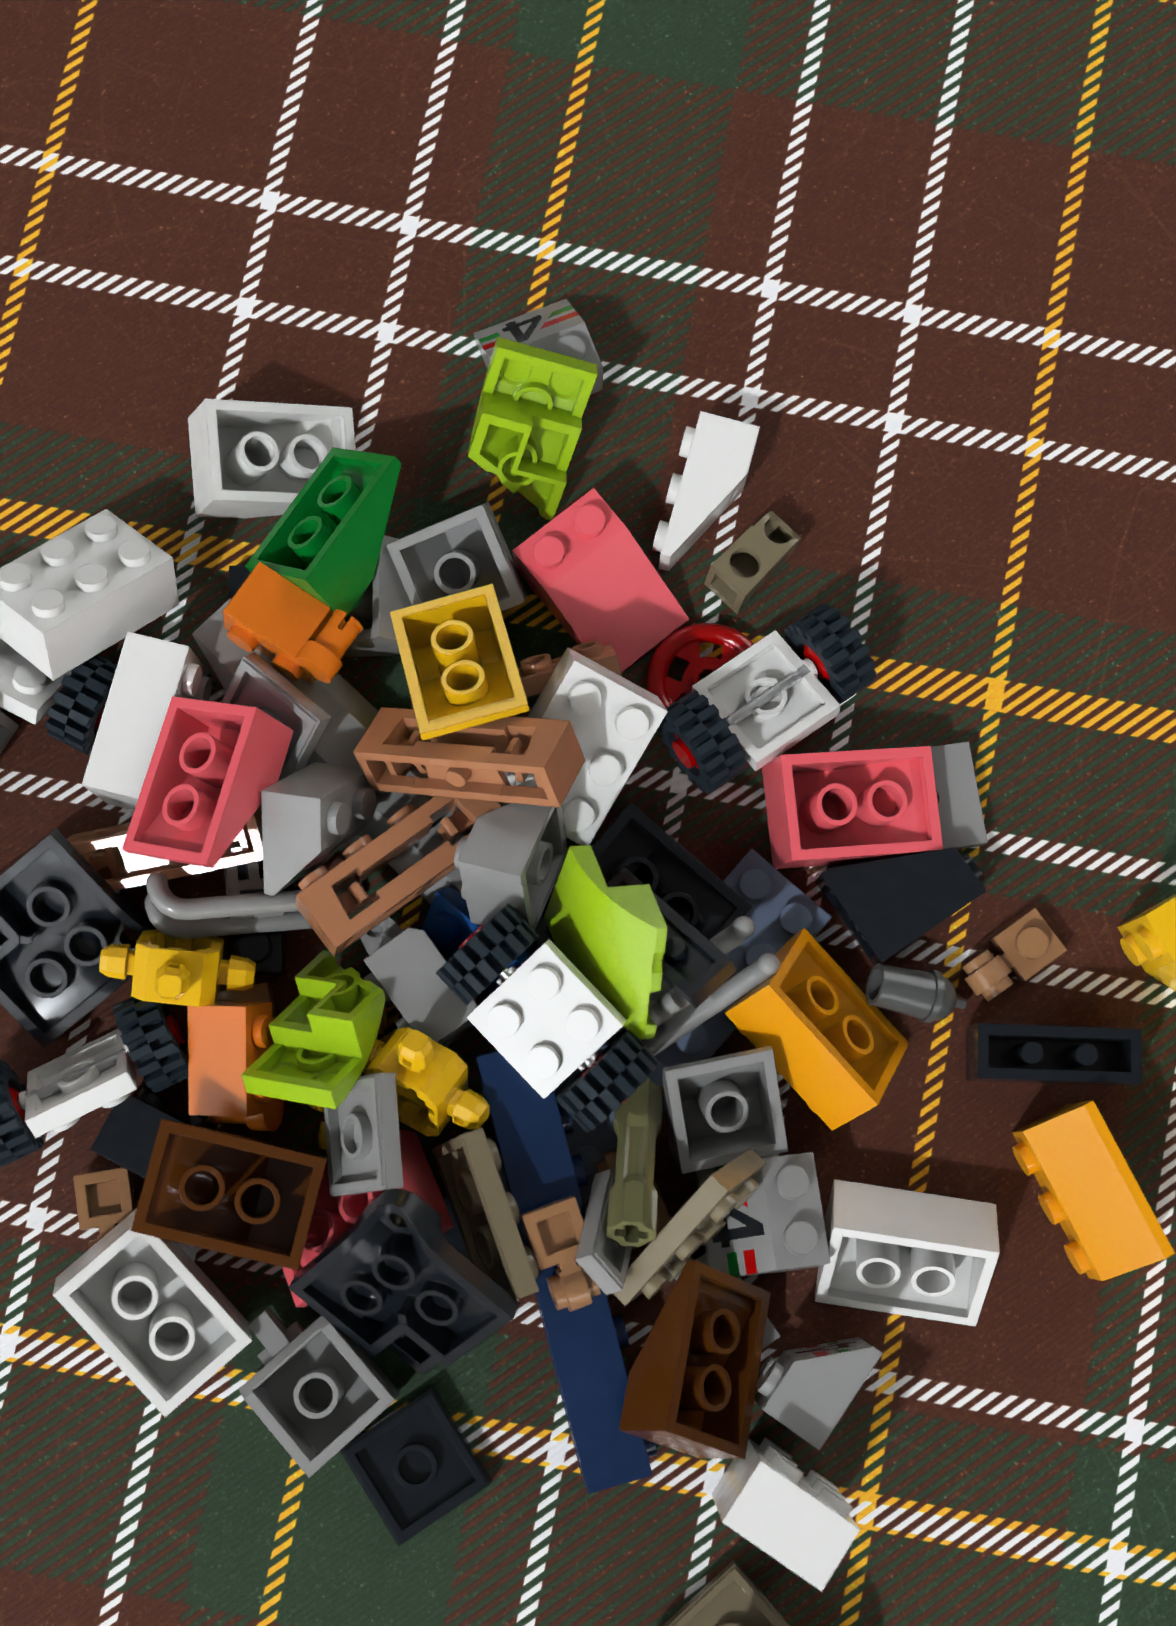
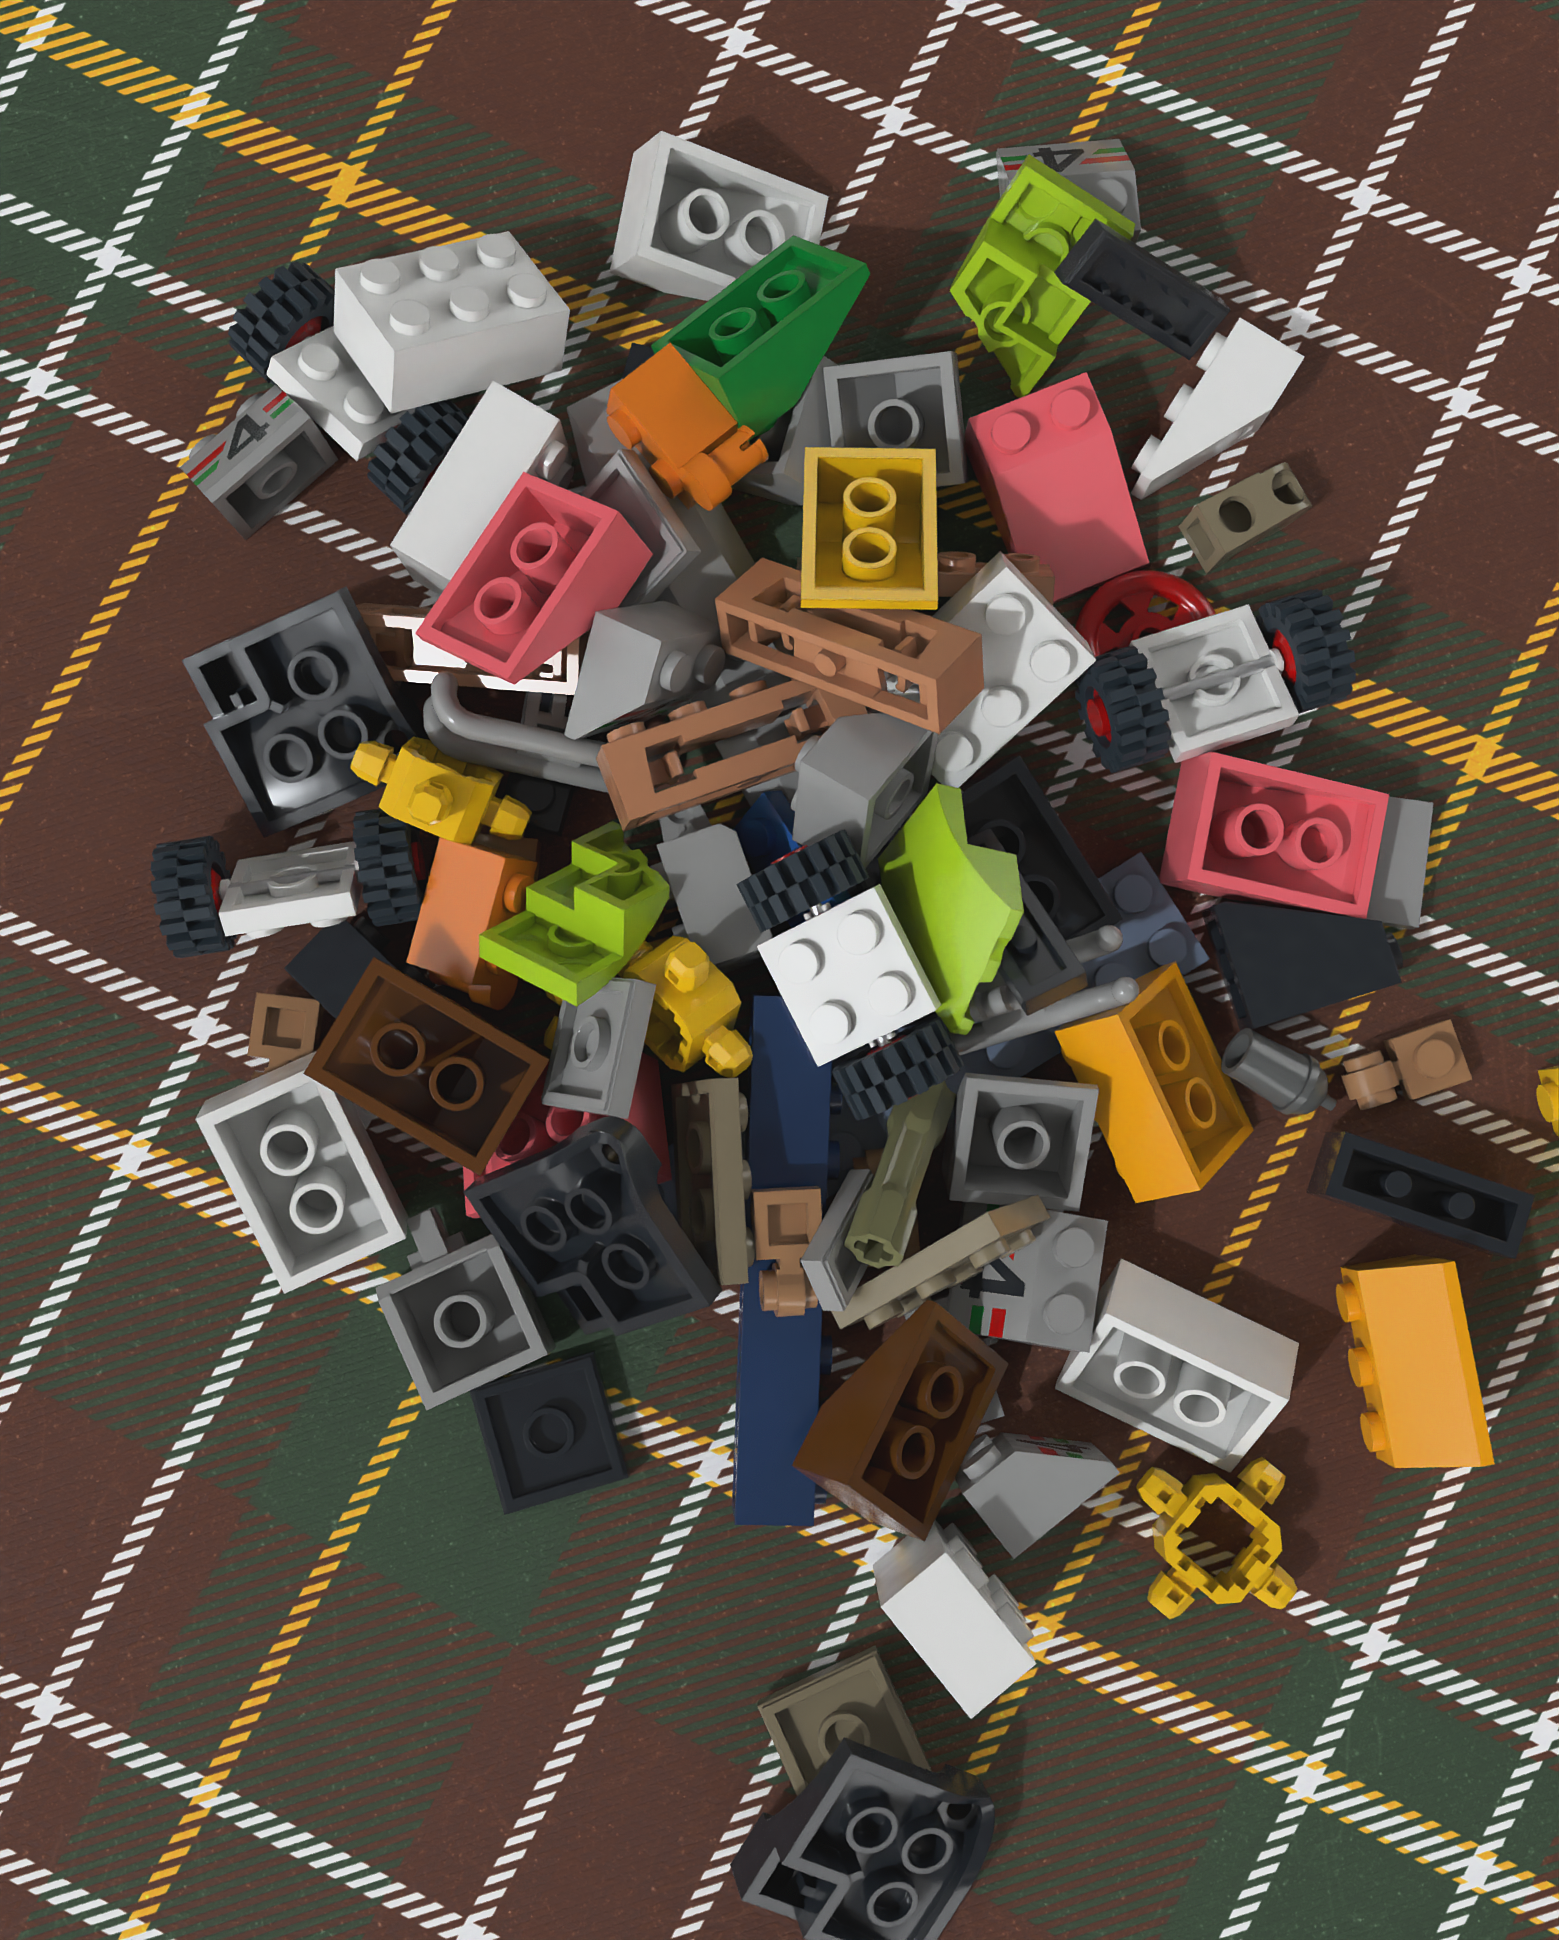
camera: 20 degrees right, 5 degrees up
(617, 412) = (1141, 289): none -> black plate
(1016, 1397) = (1252, 1567): none -> yellow piece

